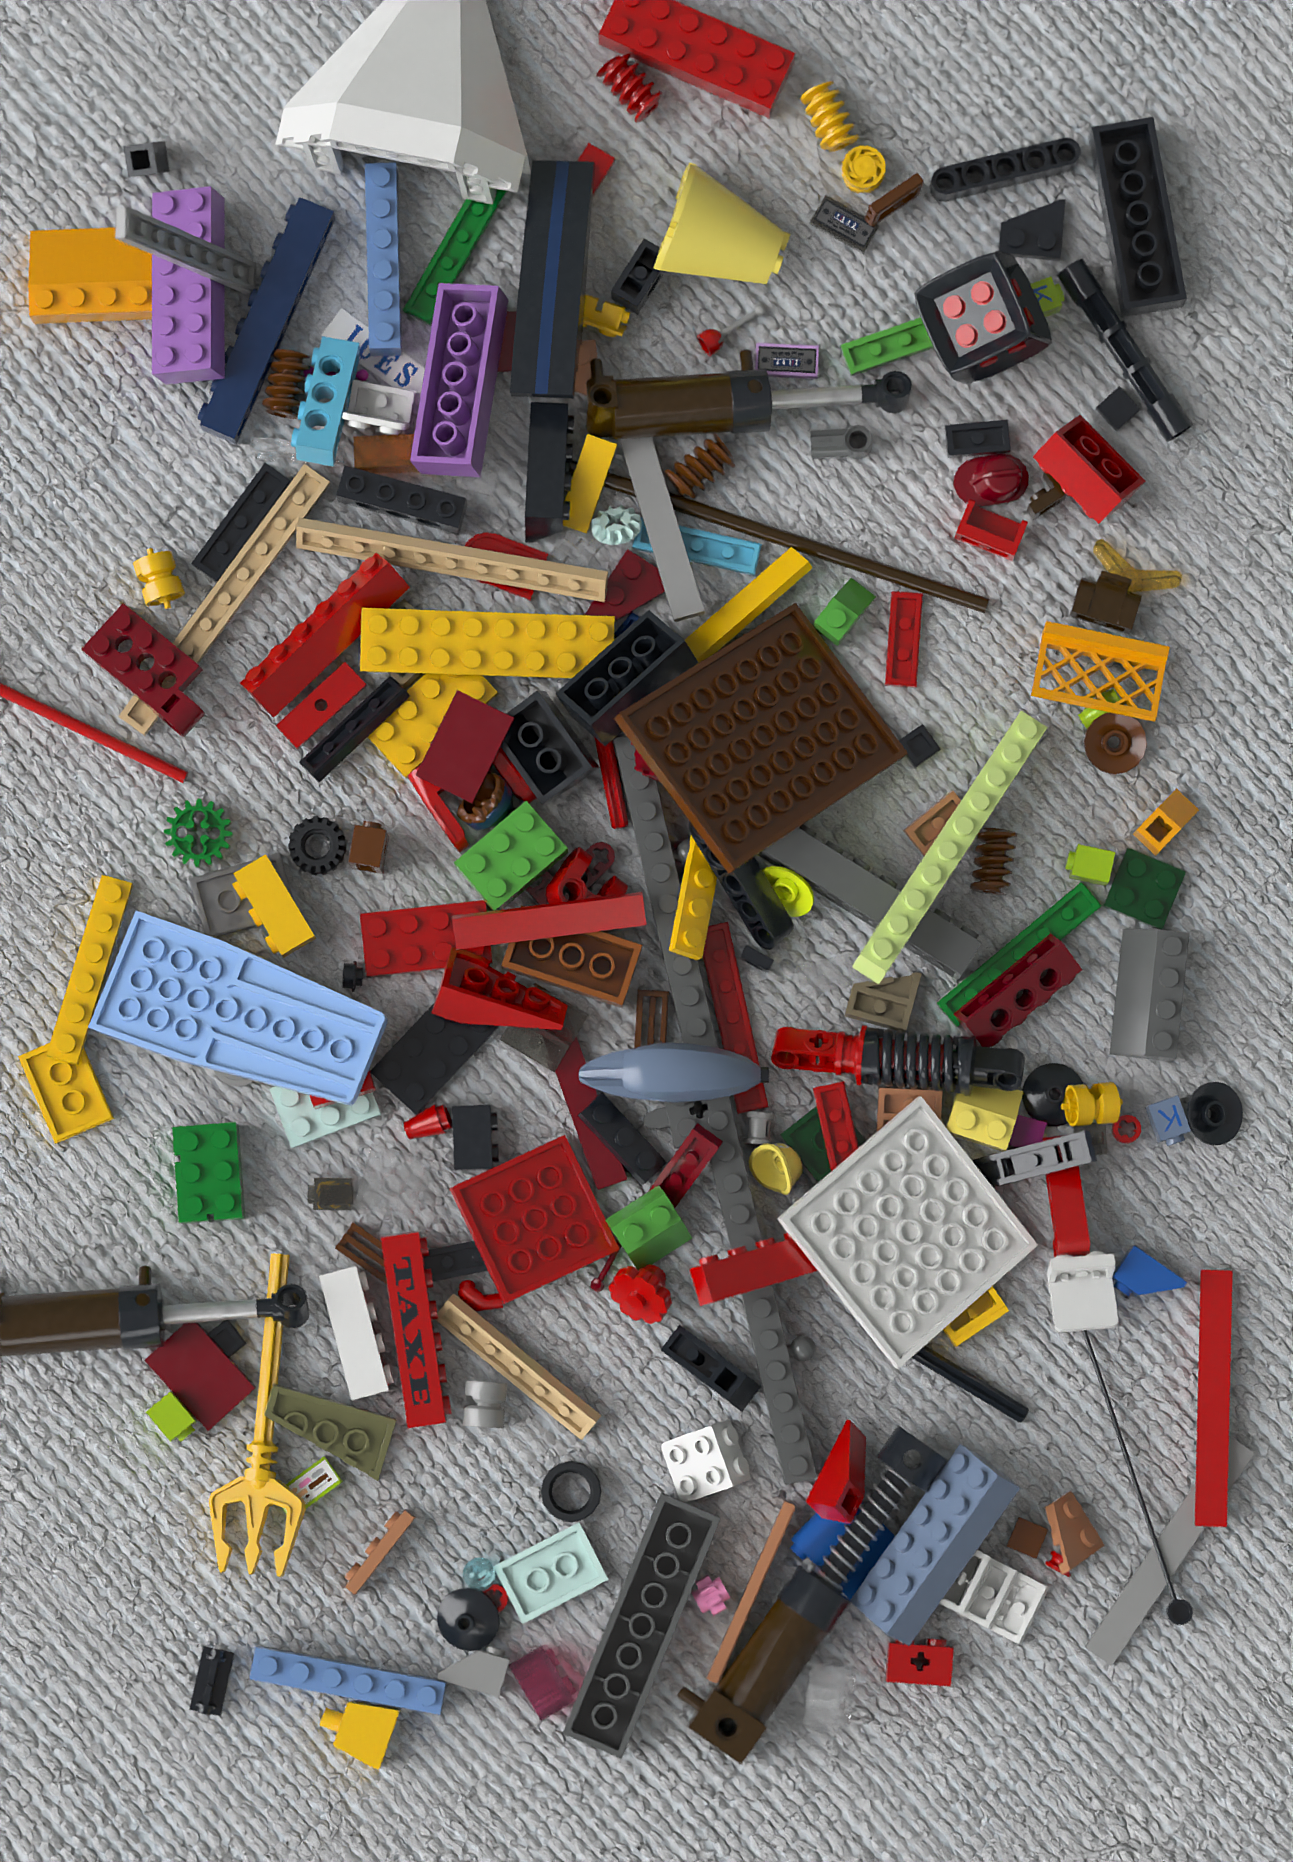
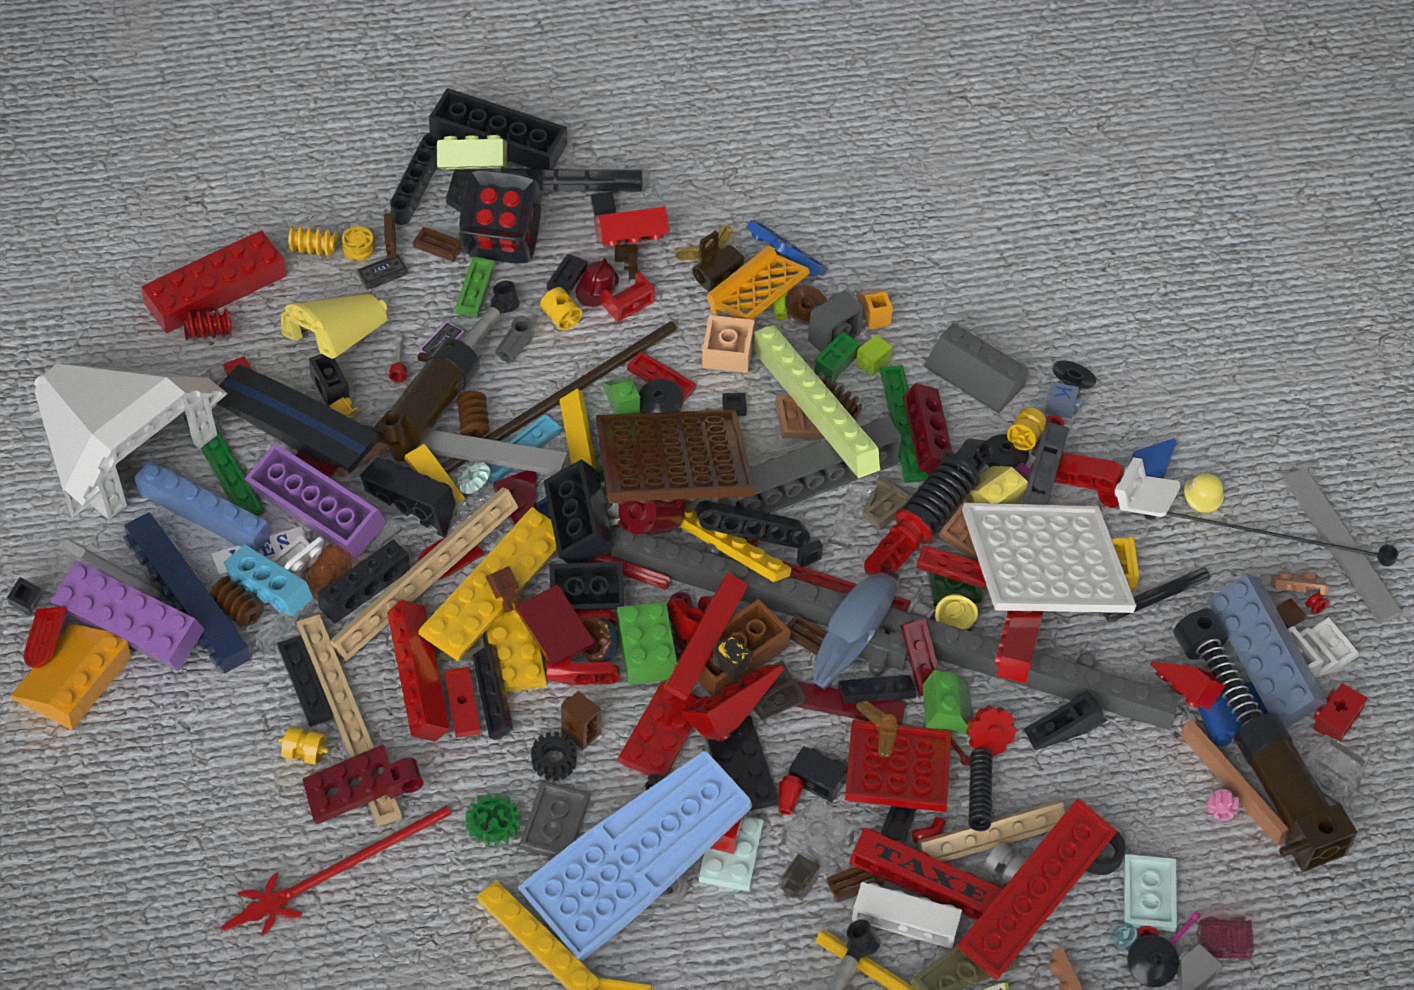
camera: 60 degrees left, 30 degrees down
(99, 218) = (43, 636): none -> red window
(209, 1172) = (735, 941): green piece -> none
(272, 907) = (577, 797): yellow brick -> none
(464, 1455) = (1036, 889): none -> red plate
(474, 660) = (503, 584): none -> copper plate
(504, 1625) = (1194, 918): none -> dark pink hinge
(537, 965) = (732, 657): none -> clear smoke brick
(556, 1325) = (980, 789): none -> black piece
(575, 1177) = (886, 727): none -> clear yellow piece
(641, 1625) = (1221, 854): dark grey brick -> none
(706, 1461) = (1127, 762): white bracket -> none
(791, 889) = (783, 500): neon yellow dish -> none
(882, 658) = (670, 402): none -> black dish
(918, 467) = (561, 308): none -> yellow wheel
(924, 232) = (435, 246): none -> reddish brown tile
(990, 690) = (728, 344): none -> light nougat brick
(1055, 824) = (836, 356): none -> green hinge
(1070, 214) = (471, 153): none -> yellowish green brick
(1101, 794) = (836, 315): none -> dark grey brick
(1141, 1354) = (1204, 492): none -> light yellow helmet
(1144, 889) = (908, 340): dark green plate -> none
(1187, 667) = (783, 246): none -> blue hinge
(1213, 1398) = (1258, 469): red tile -> none

